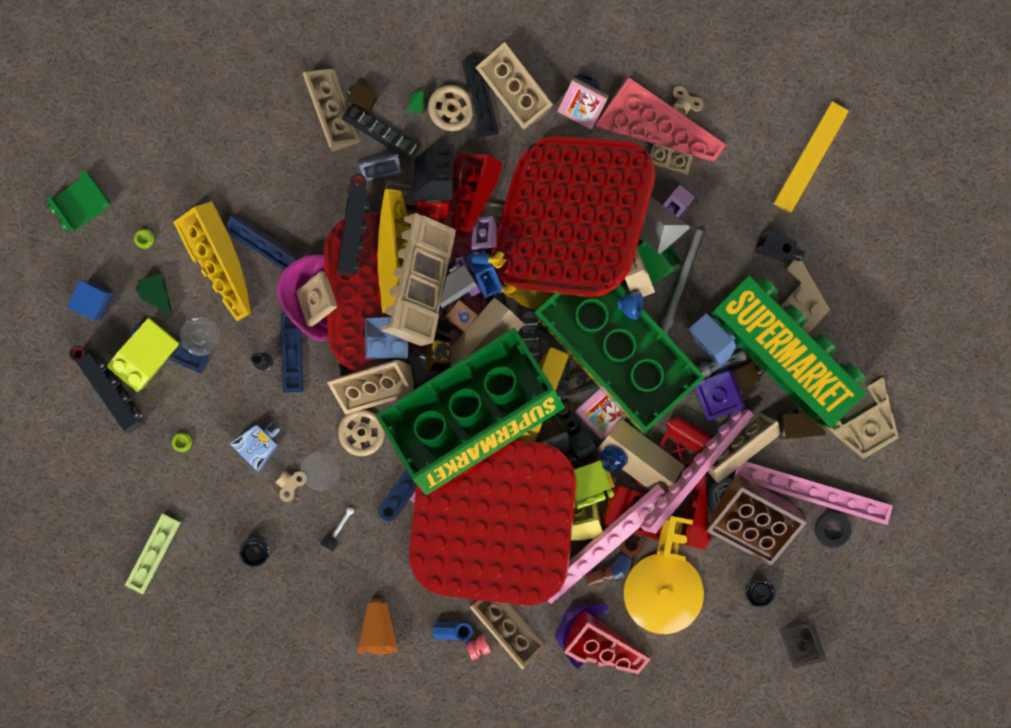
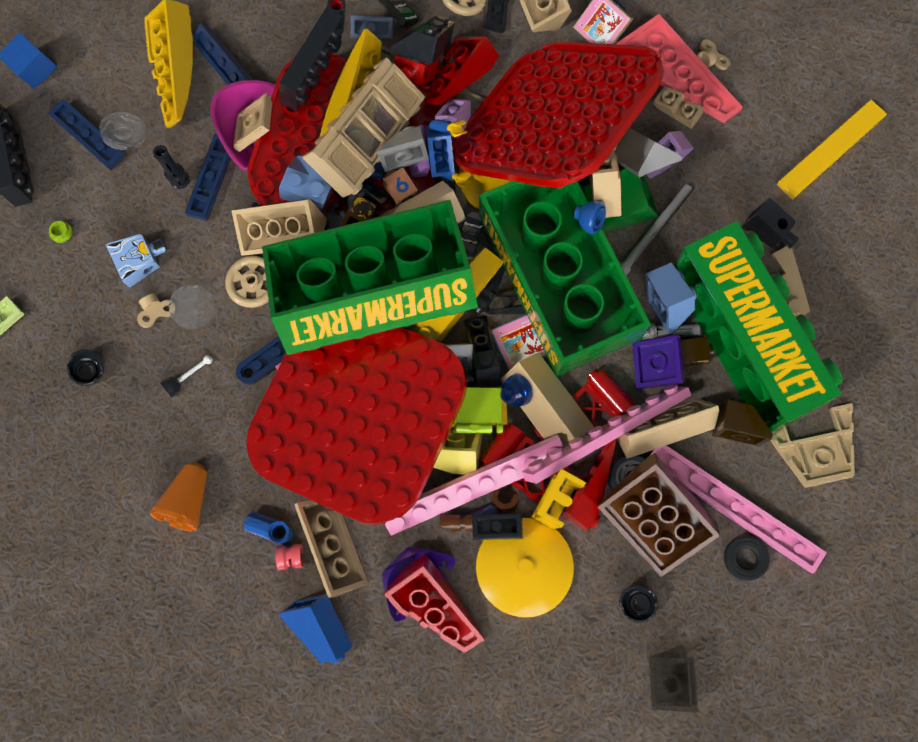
camera: 25 degrees right, 10 degrees down
(143, 355) = (54, 129): neon yellow slope -> none
(144, 238) = (108, 24): lime plate -> none
(155, 292) = (97, 75): dark green slope -> none
(520, 693) = (318, 628): none -> blue slope
(633, 571) = (497, 526): none -> black slope

